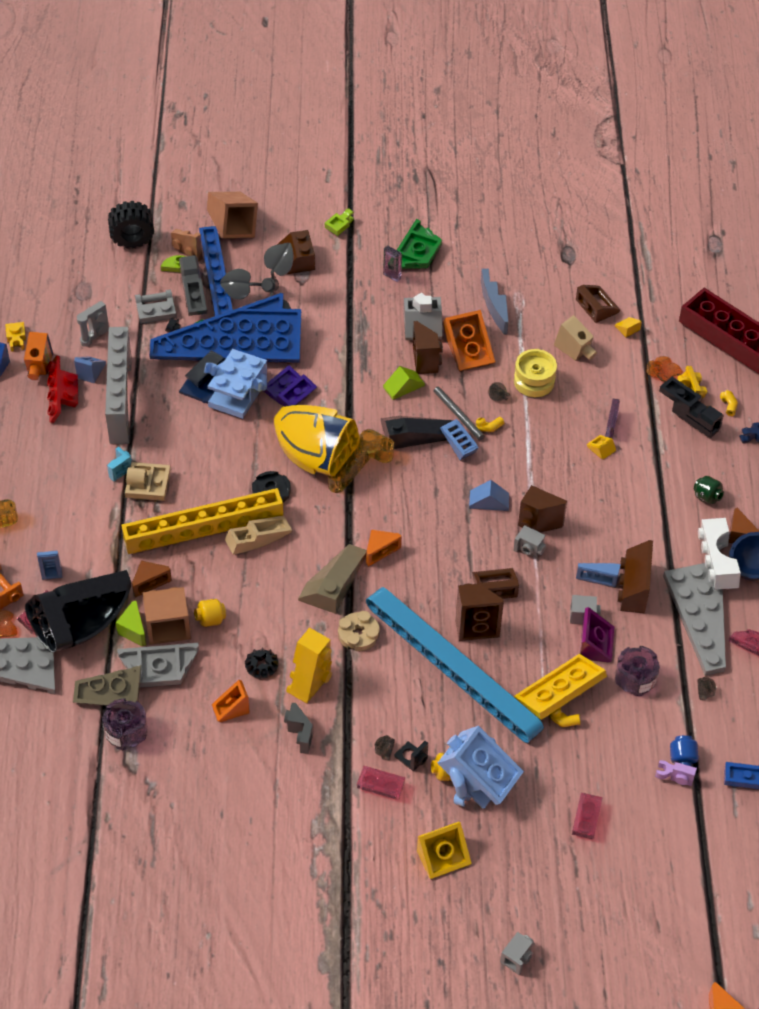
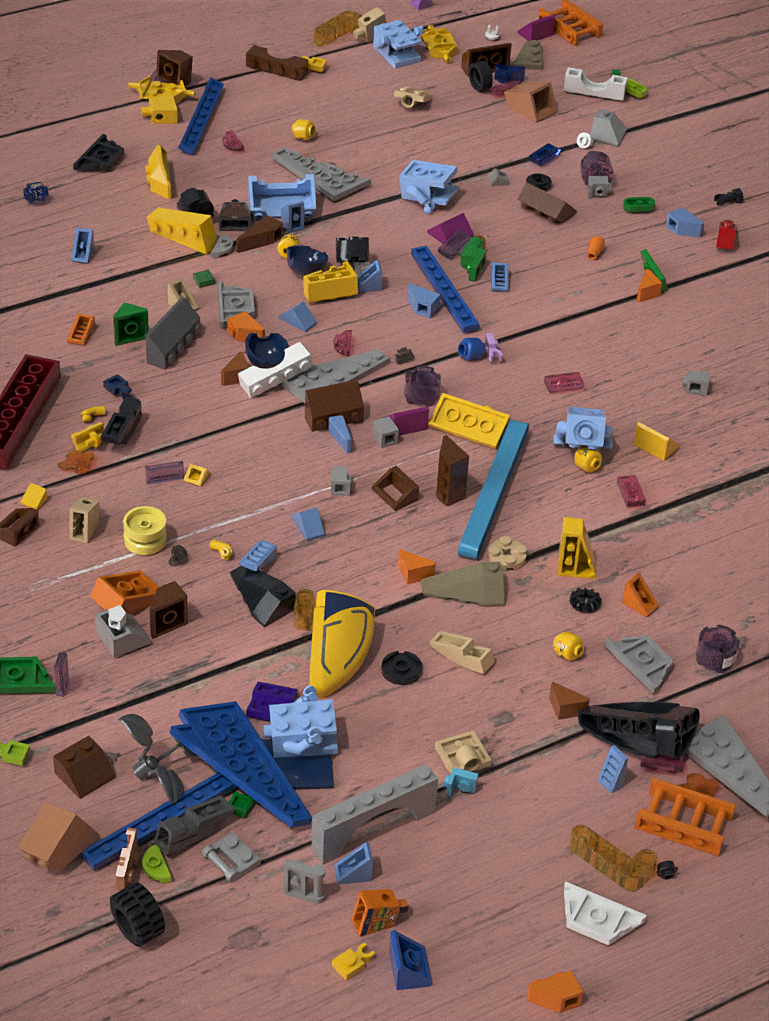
camera: 120 degrees left, 10 degrees down
(62, 389) = (408, 874): red bracket -> none
(109, 687) = (694, 673): dark tan wing -> none
(130, 625) = (620, 690): lime slope -> none
(166, 615) = (597, 667): nougat slope -> none
(172, 325) = (253, 830): black plate -> none
(197, 375) = (299, 764): black slope -> none
(200, 521) = (484, 687): yellow brick -> none
(299, 723) = (623, 551): dark grey slope -> none
(384, 747) = (599, 500): clear smoke plate -> none
(402, 382) = (211, 621): lime slope -> none
(418, 756) = (593, 478): black bracket -> none
(460, 415) = (220, 575): dark grey bar -> none
(495, 303) = (65, 589): sand blue slope -> none
(542, 510) = (310, 477): reddish brown slope -> none
(708, 490) = (207, 397): dark green head -> none

